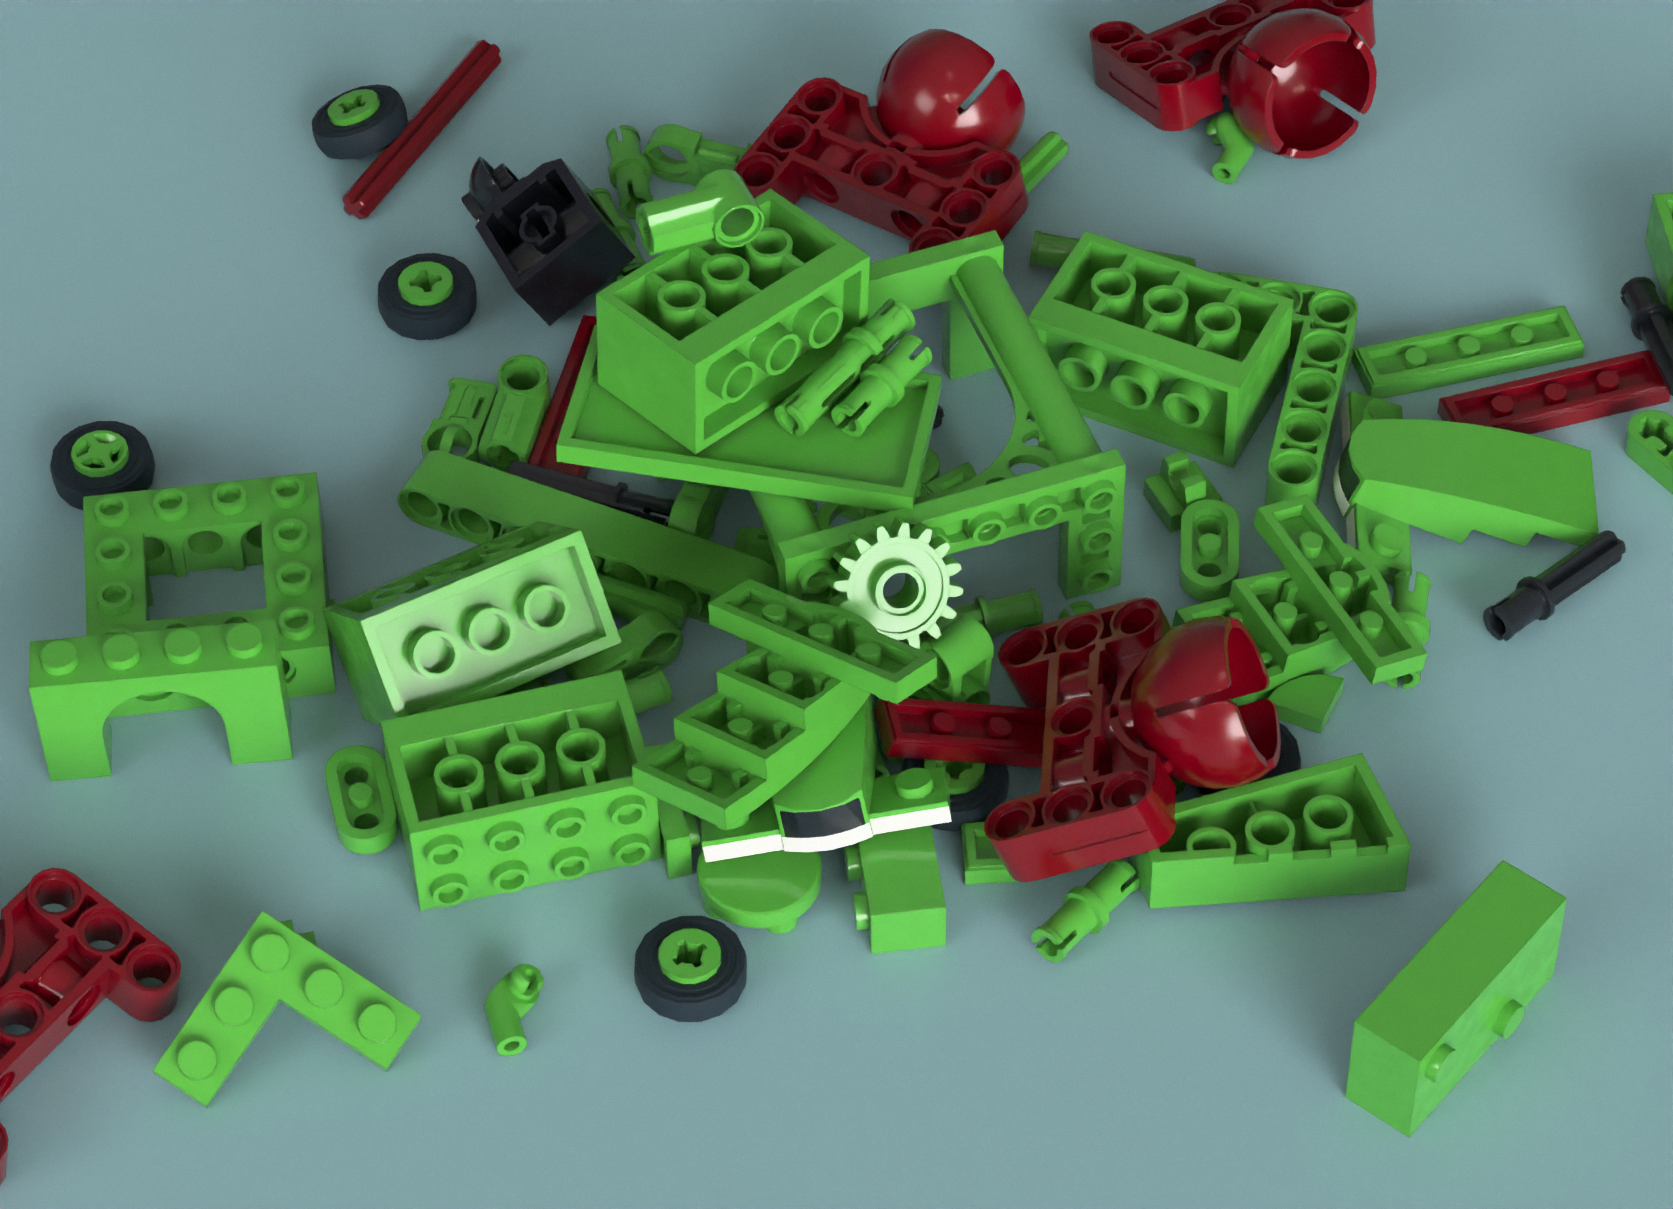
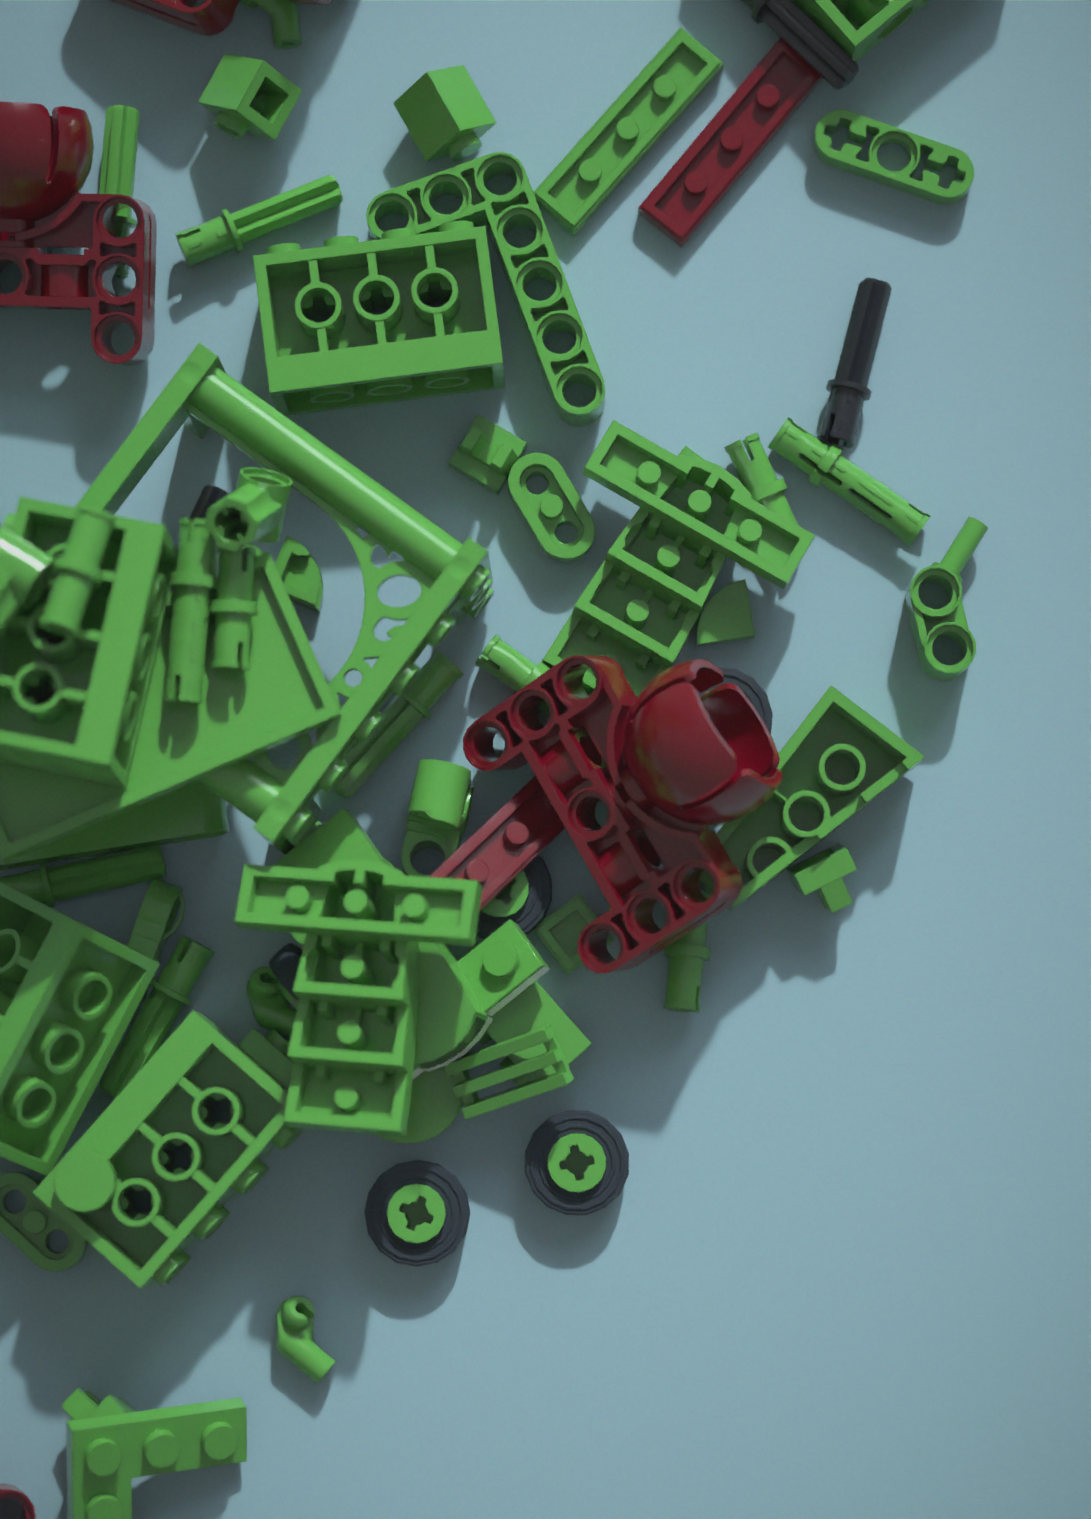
camera: 30 degrees left, 35 degrees up
(430, 728) = (85, 1181): none -> bright green tile
(775, 234) = (77, 571): none -> bright green pin
(857, 872) = (467, 1087): none -> bright green tile
(881, 1023) = (576, 1143): none -> black wheel
(893, 551) = (370, 795): gear -> none
(950, 332) = (252, 511): none -> bright green piece
(1165, 177) = (249, 97): none -> bright green brick
(1255, 912) = (824, 874): none -> bright green tile
(1320, 252) = (445, 114): none -> bright green brick
(1454, 481) = (708, 310): bright green slope -> none
(1455, 998) = (1039, 874): bright green brick -> none
(1464, 619) = (848, 481): none -> bright green pin
(1505, 783) = (950, 620): none -> bright green beam

